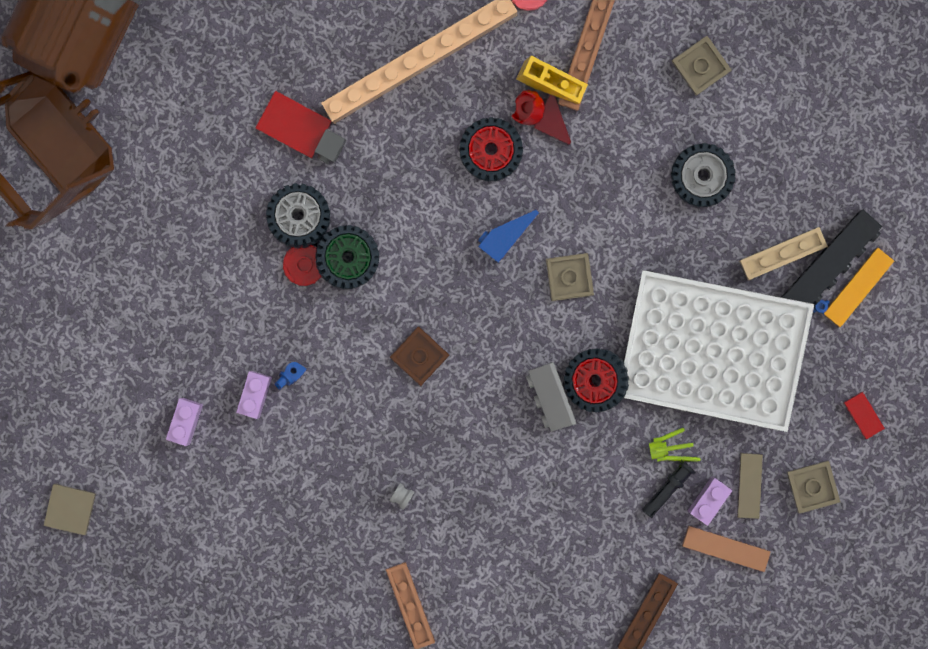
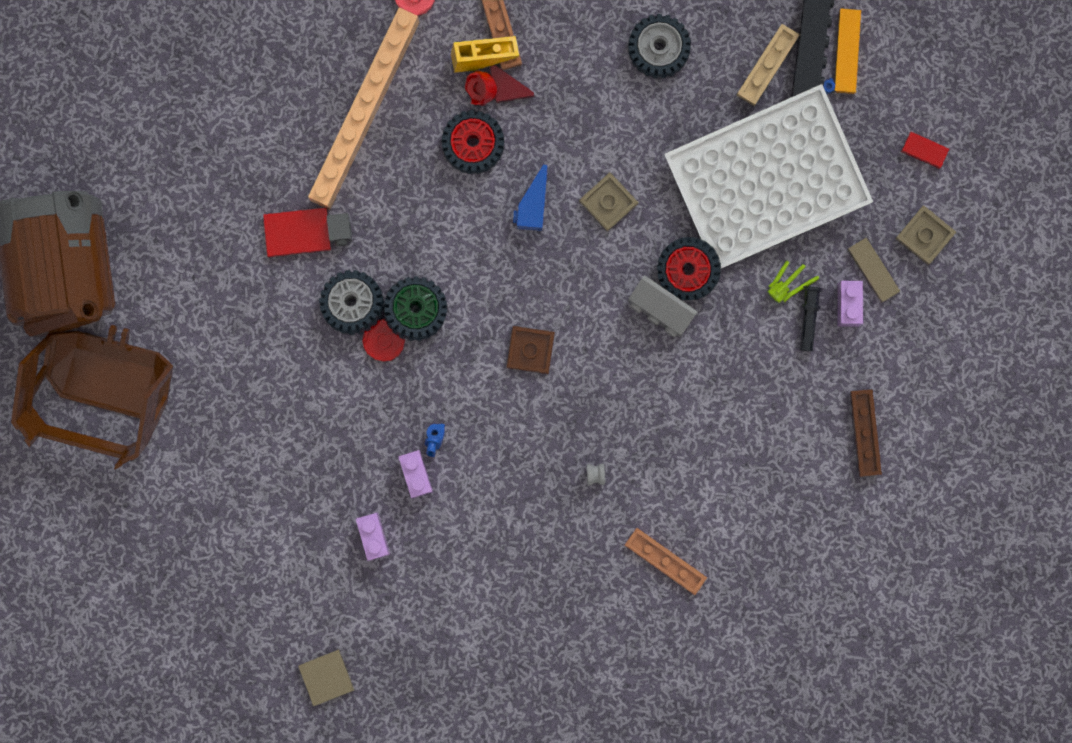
camera: 30 degrees left, 5 degrees down
(726, 548) = (891, 334): nougat tile -> none

